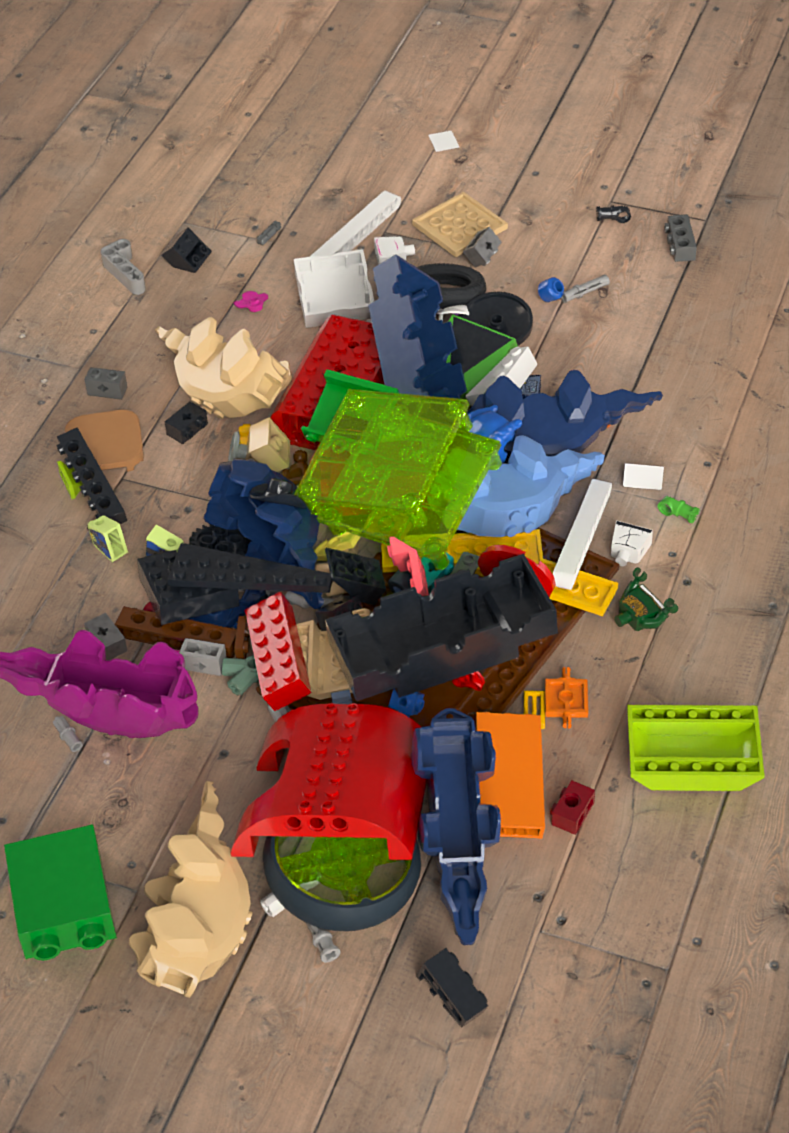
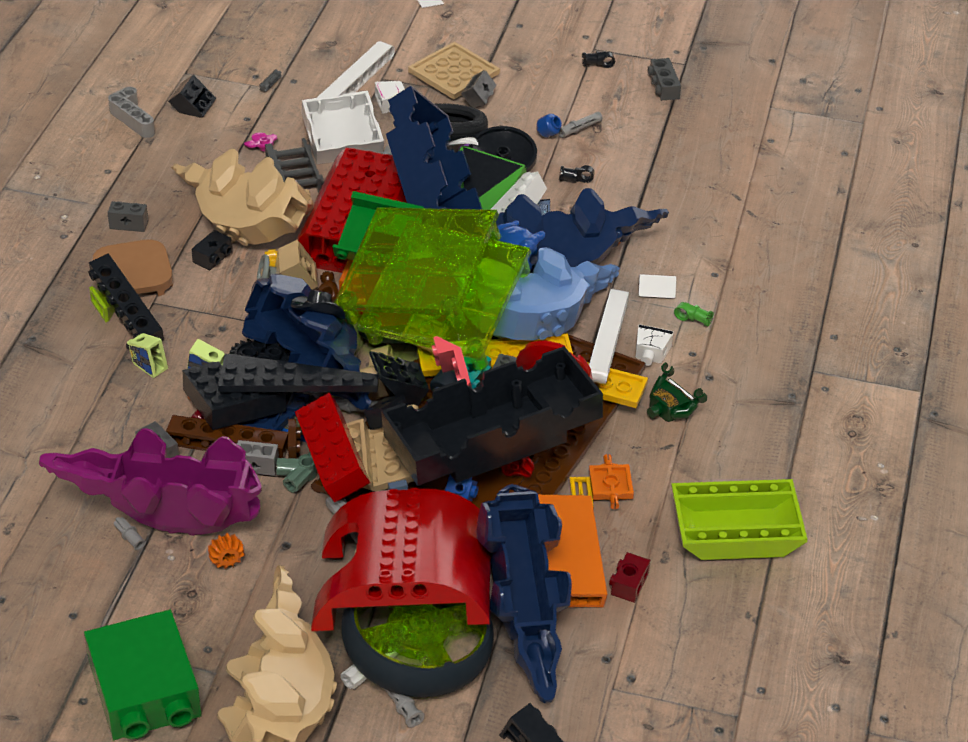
camera: 10 degrees left, 5 degrees down
(160, 758) = (225, 550): none -> orange gear
(263, 329) = (316, 179): none -> dark grey fence
(340, 543) = (387, 347): light yellow tile -> none
(573, 346) = (576, 174): none -> black connector

